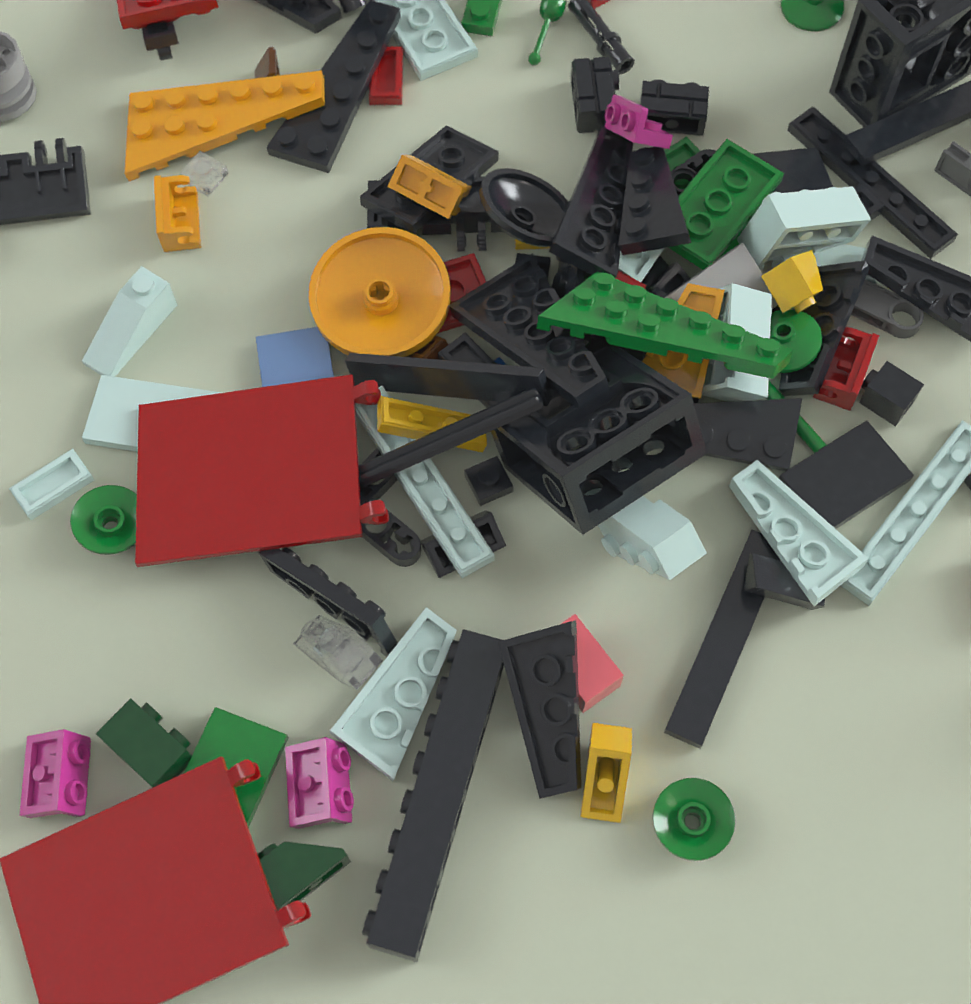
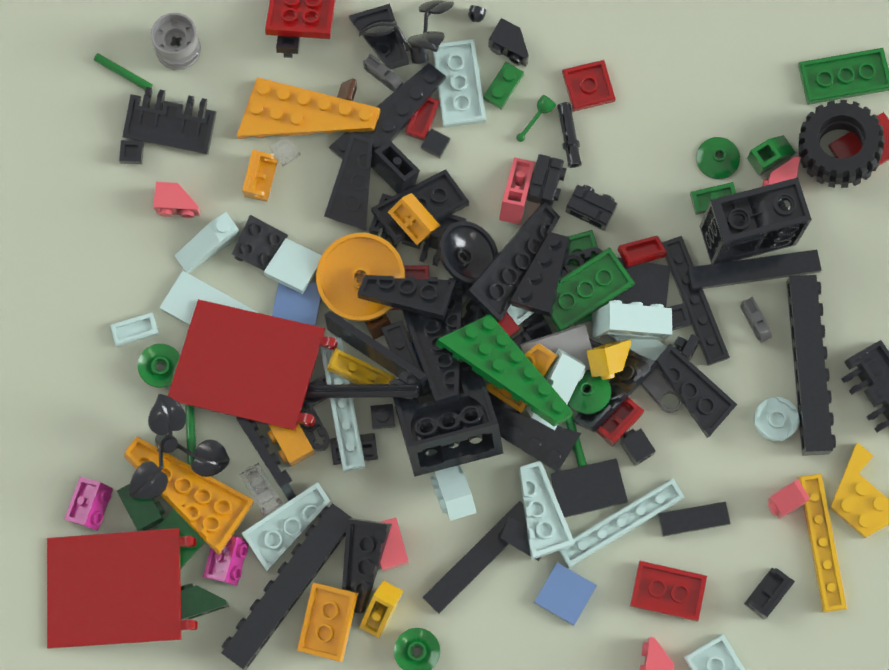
camera: 20 degrees right, 10 degrees up
(57, 283) = (172, 199): none -> coral slope
(140, 580) = (163, 419): none -> black plant
(194, 610) = (190, 431): none -> green bar
(208, 302) = (258, 243): none -> black hinge
(244, 701) = (201, 501): none -> light orange wing
(271, 314) = (293, 266): none -> light aqua tile
(307, 34) = (382, 73): none -> dark grey piece
(320, 187) = (351, 189): none -> black wing
(362, 563) = (293, 444): none -> light orange brick
(372, 138) = (394, 167): none -> black brick
(418, 100) = (435, 143): none -> black tile
(481, 283) = (419, 296): none -> black wing
(528, 824) = (327, 621): none -> light orange plate
(560, 122) = (516, 191): none -> coral slope
(631, 122) = (556, 220): dark pink bracket -> none
(771, 137) = (642, 251): none -> red tile
(824, 52) = (702, 197): none -> green plate
(885, 645) = (565, 594): none -> medium blue tile
(897, 233) = (687, 347): none -> black tile

